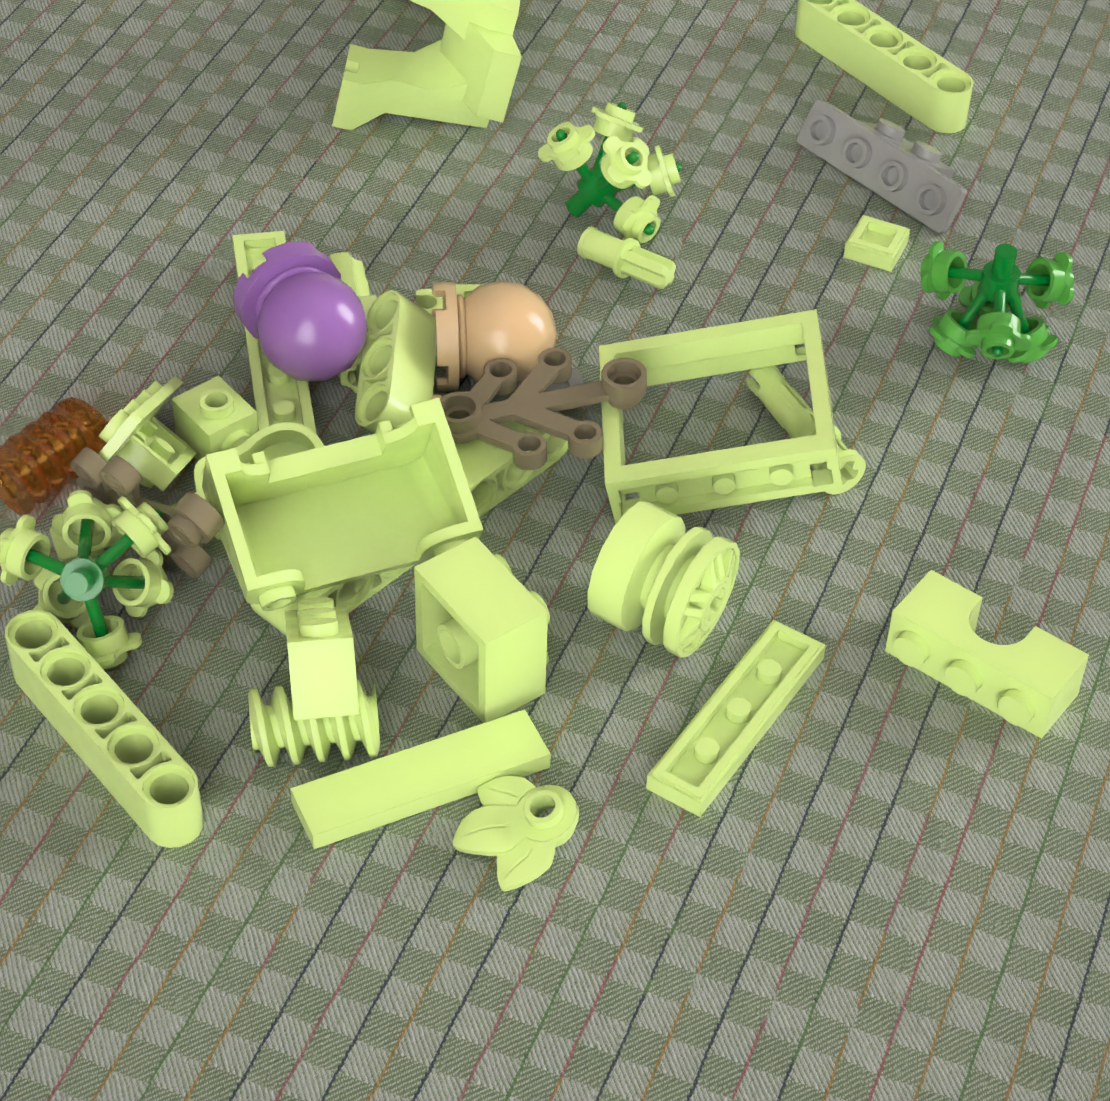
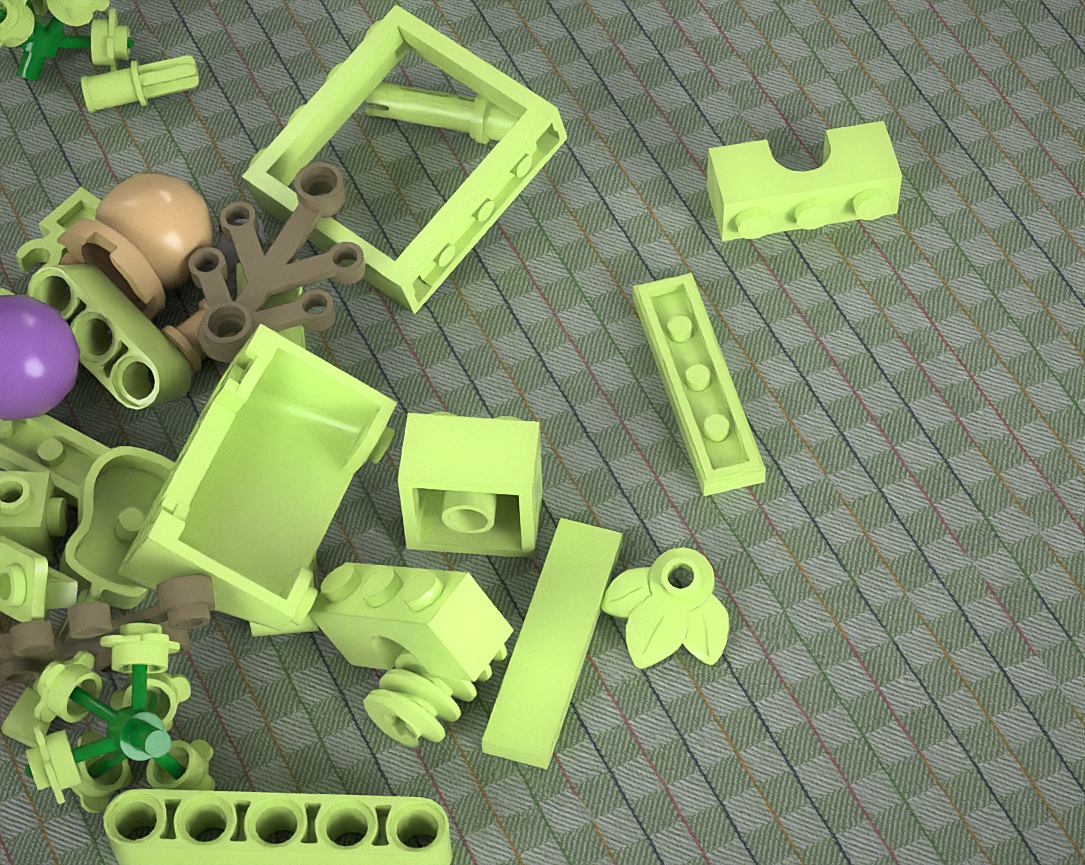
camera: 45 degrees left, 10 degrees up
(663, 578) = (557, 320): yellowish green wheel -> none

